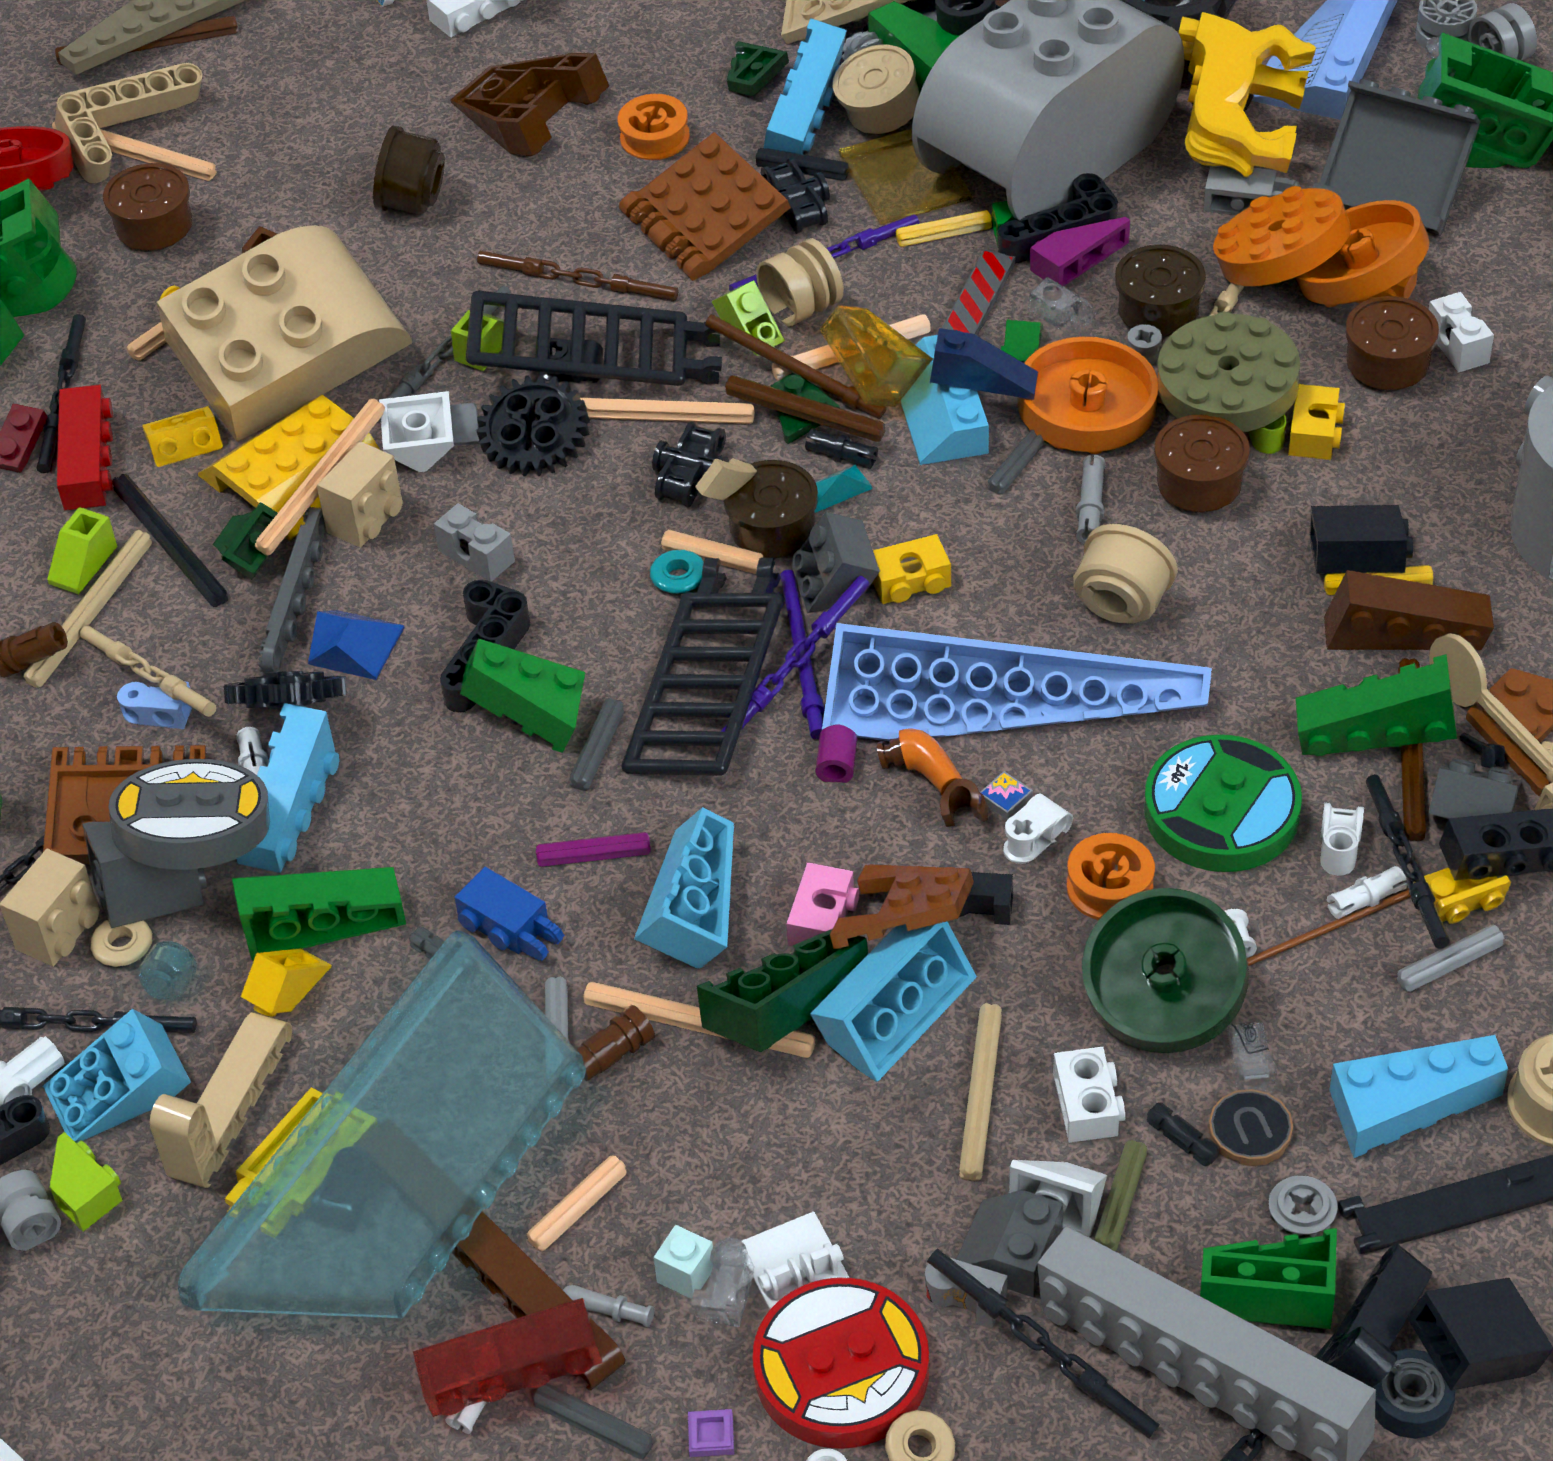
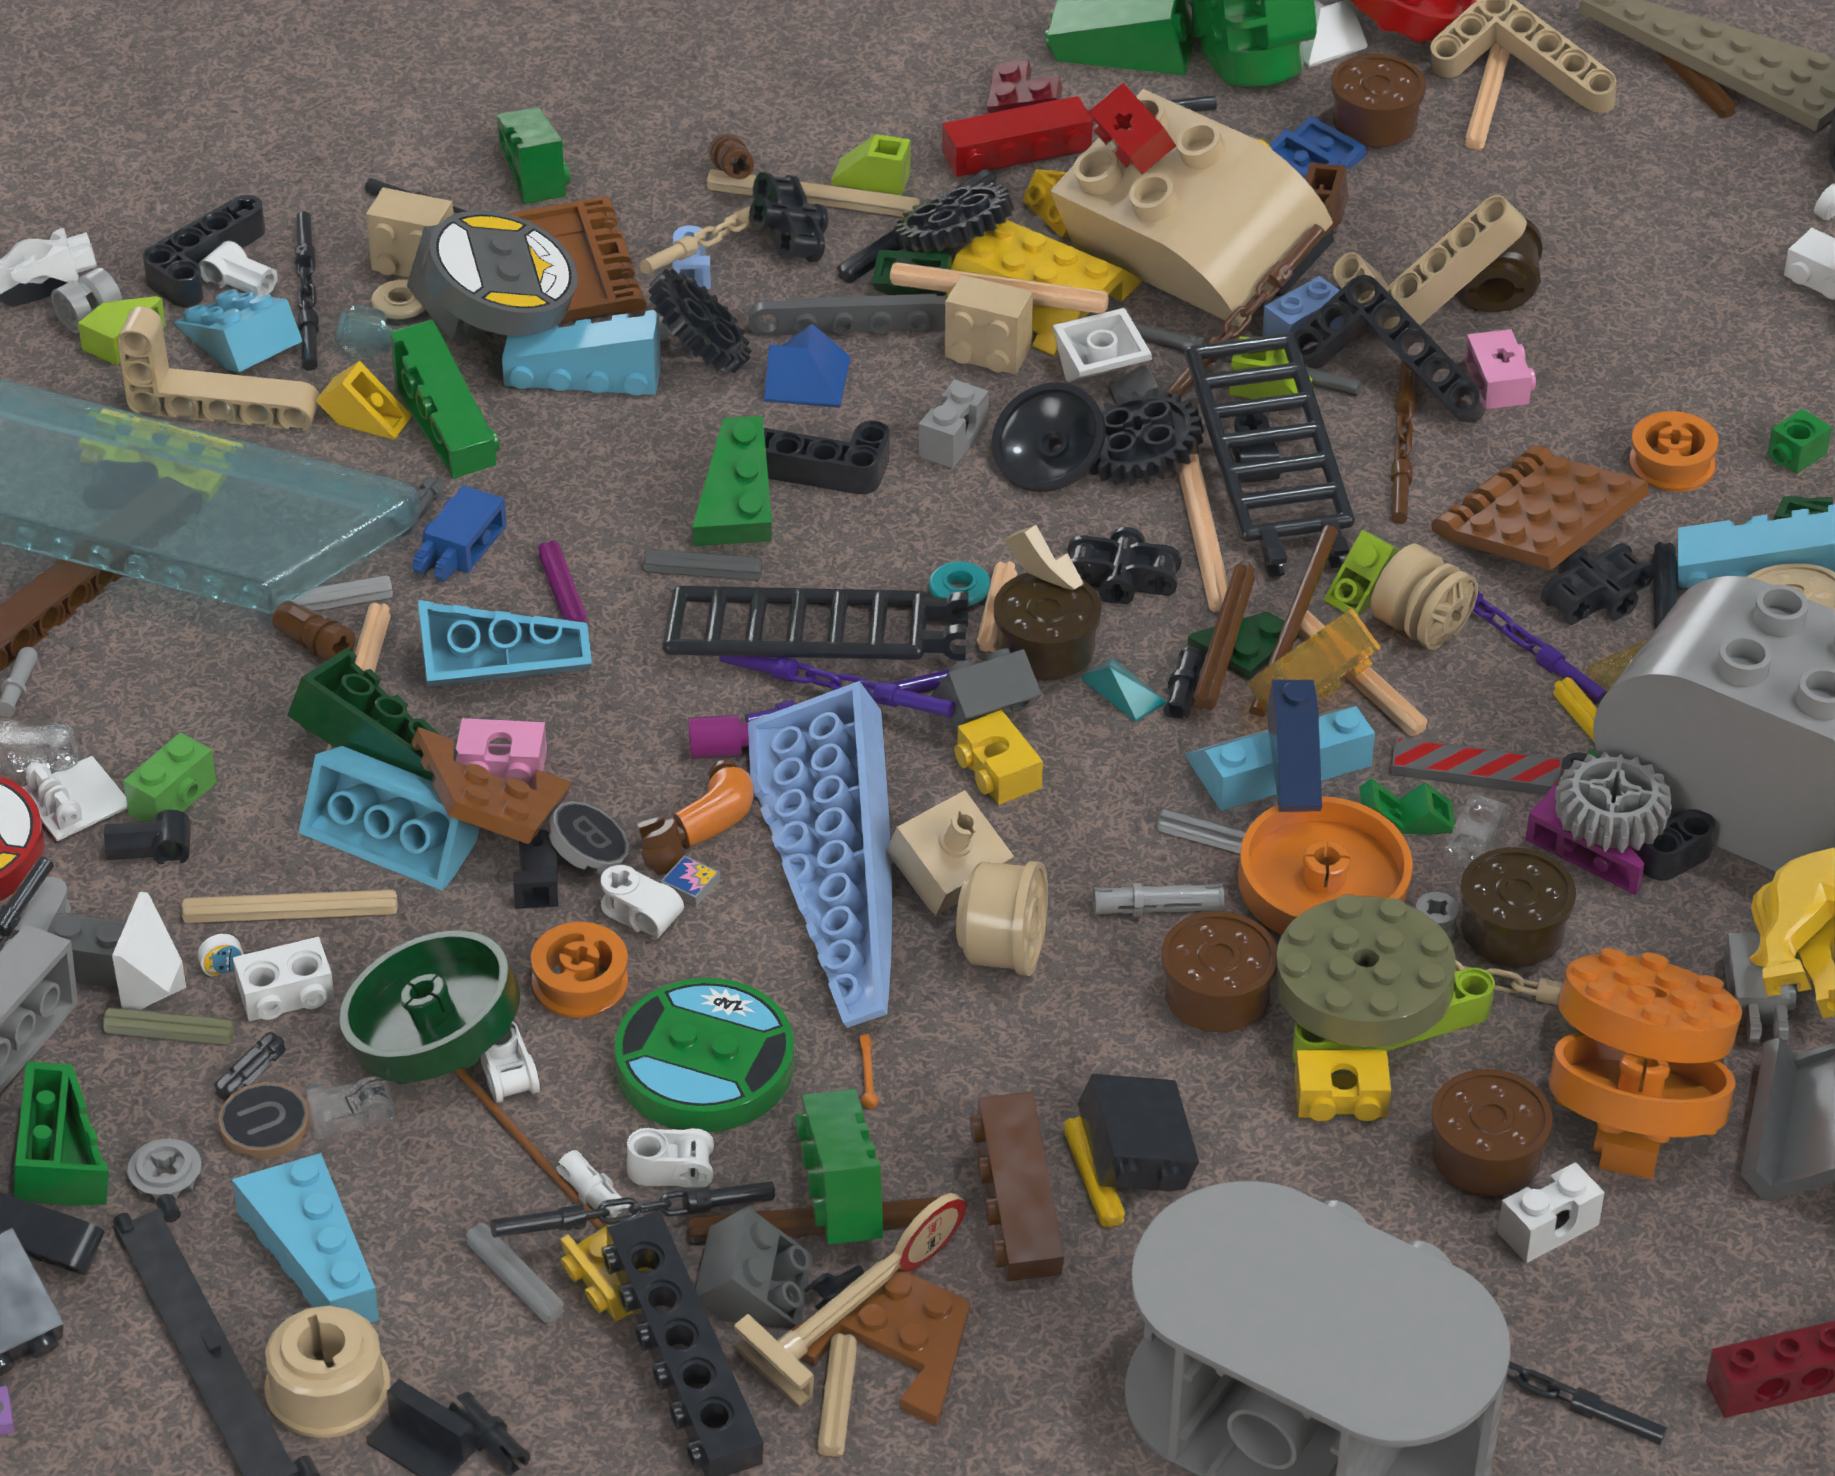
camera: 75 degrees right, 5 degrees down
(121, 617) = (793, 225): none -> black axle
(176, 263) = (1317, 143): none -> blue slope
(231, 483) = (954, 217): none -> black gear
(244, 295) = (1131, 128): none -> red brick
(391, 293) = (1276, 277): none -> reddish brown piece
(412, 302) = (1297, 306): none -> medium blue brick
(425, 206) = (1447, 264): none -> tan beam
(486, 243) = (1398, 339): none -> black beam
(511, 203) = (1499, 368): none -> bright pink brick
(527, 94) = (1677, 343): reddish brown wedge -> none
(527, 458) = (1036, 424): none -> black dish
(576, 1203) = (130, 642): light nougat axle -> none
(665, 60) = (1799, 441): none -> green brick
(683, 1261) = (57, 705): light aqua brick -> none
(805, 1168) = (170, 778): none -> bright green brick
(873, 1193) = (162, 839): none -> black piece
(952, 850) = (587, 836): none -> tile
(1032, 605) = (943, 848): none -> tan brick
(1042, 1142) = (217, 954): none -> tile
(1073, 212) = (1639, 799): none -> light grey gear
(1280, 706) = (869, 1099): none -> orange hinge

